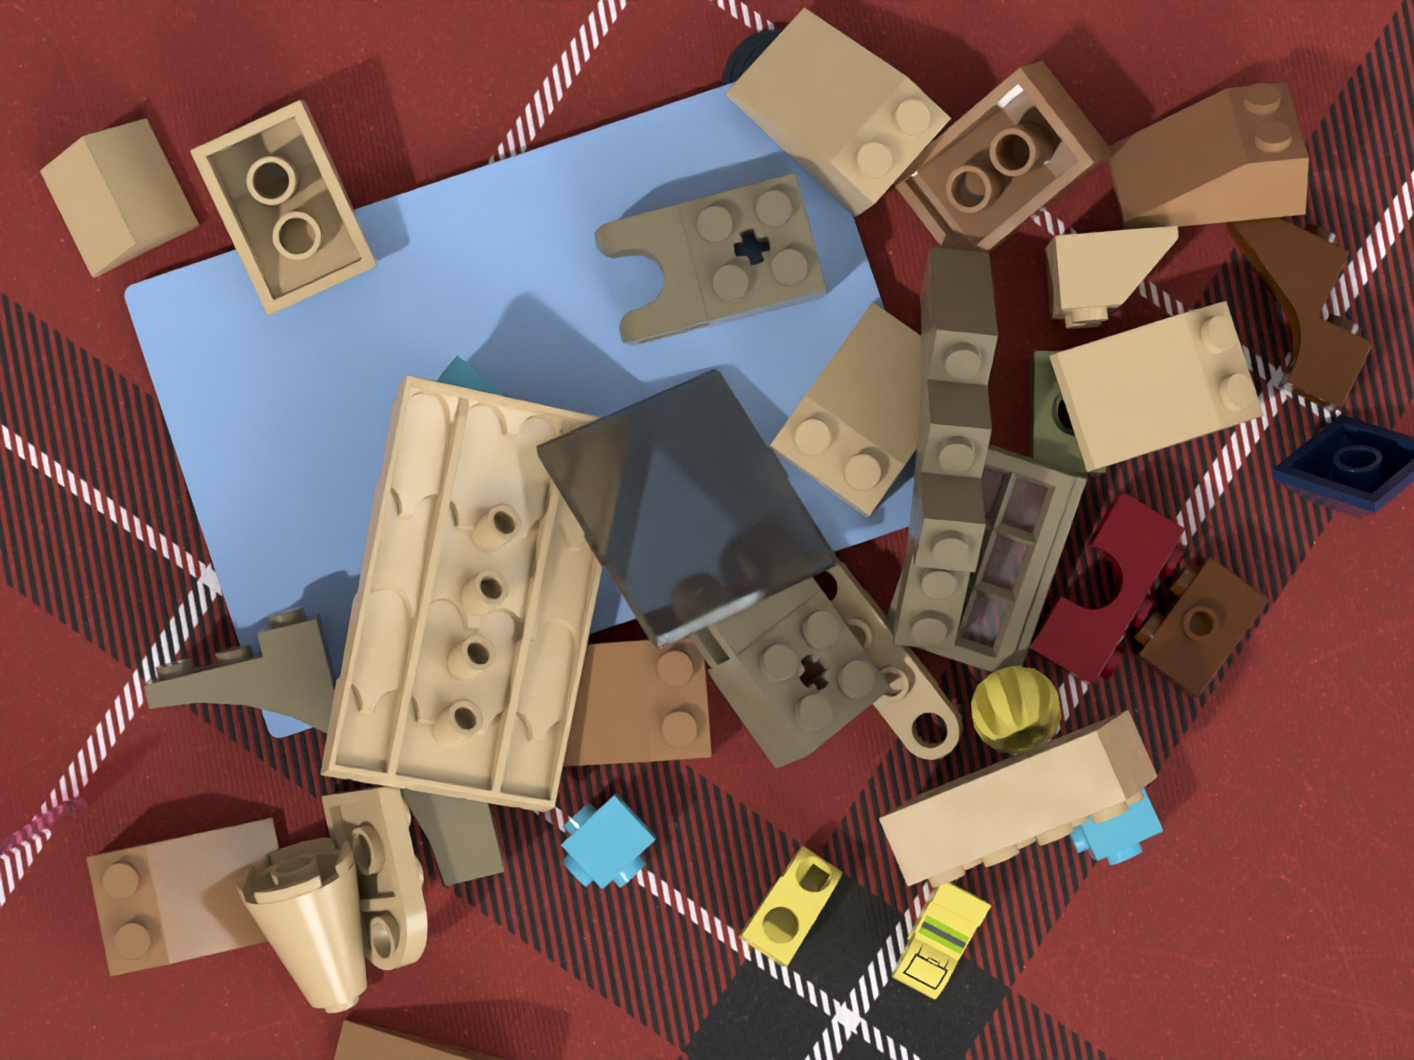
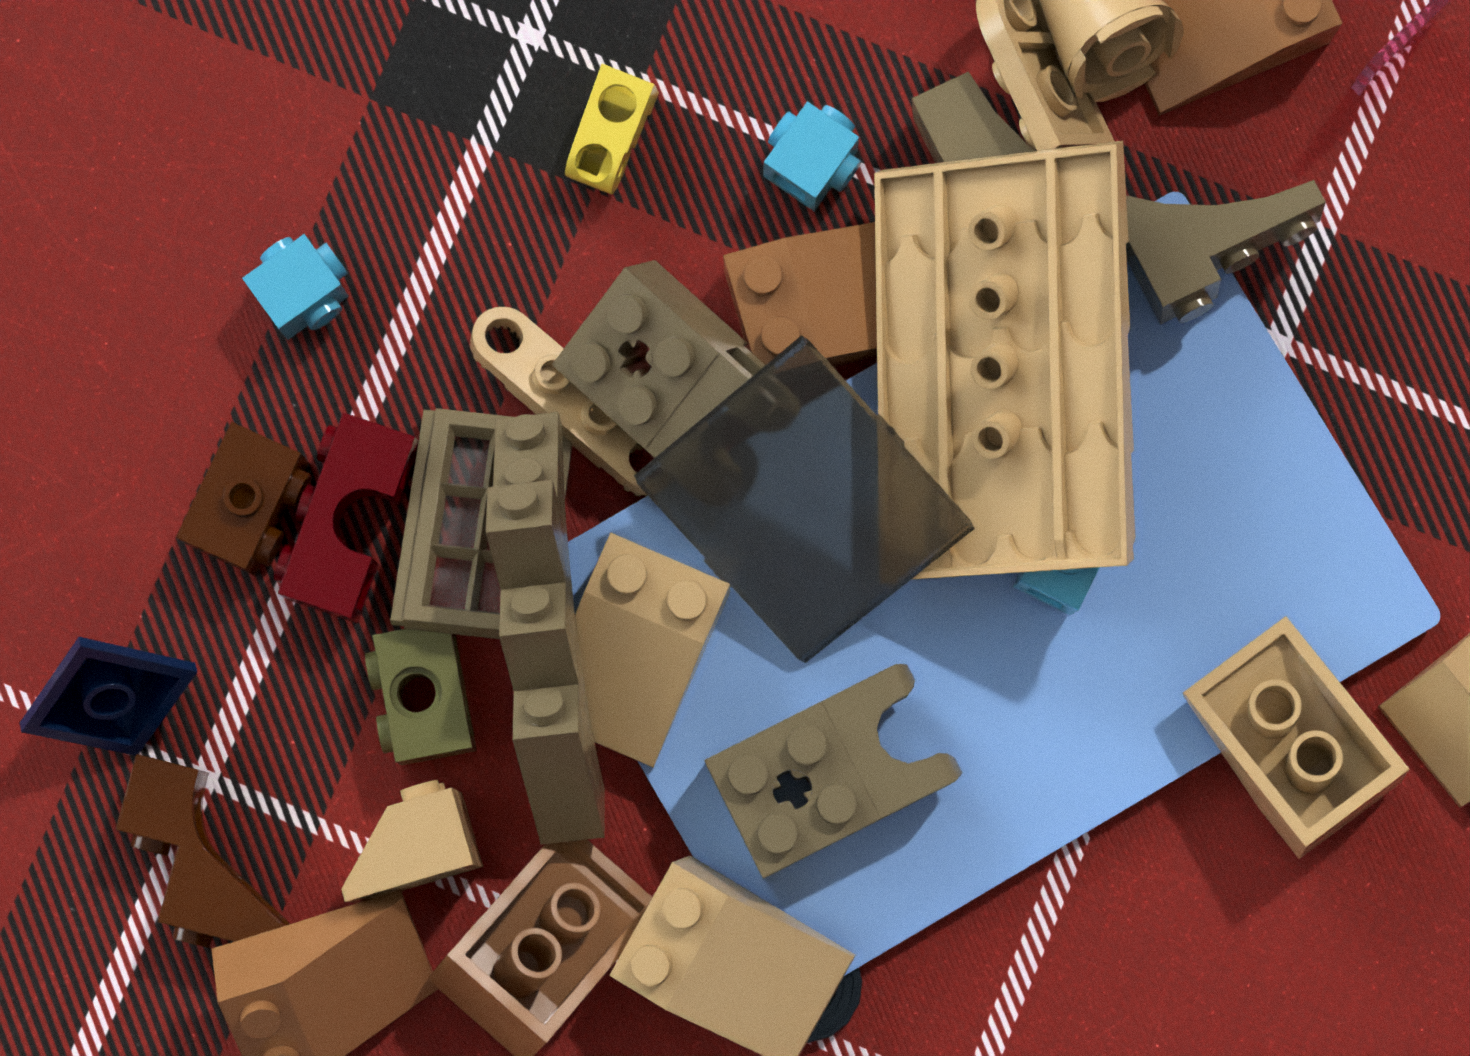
camera: 165 degrees right, 5 degrees down
(939, 938) = (451, 131): light yellow leg -> none
(1015, 709) = (418, 372): light yellow piece -> none
(1019, 798) = (395, 270): tan brick -> none
(1156, 386) = (335, 733): tan slope -> none

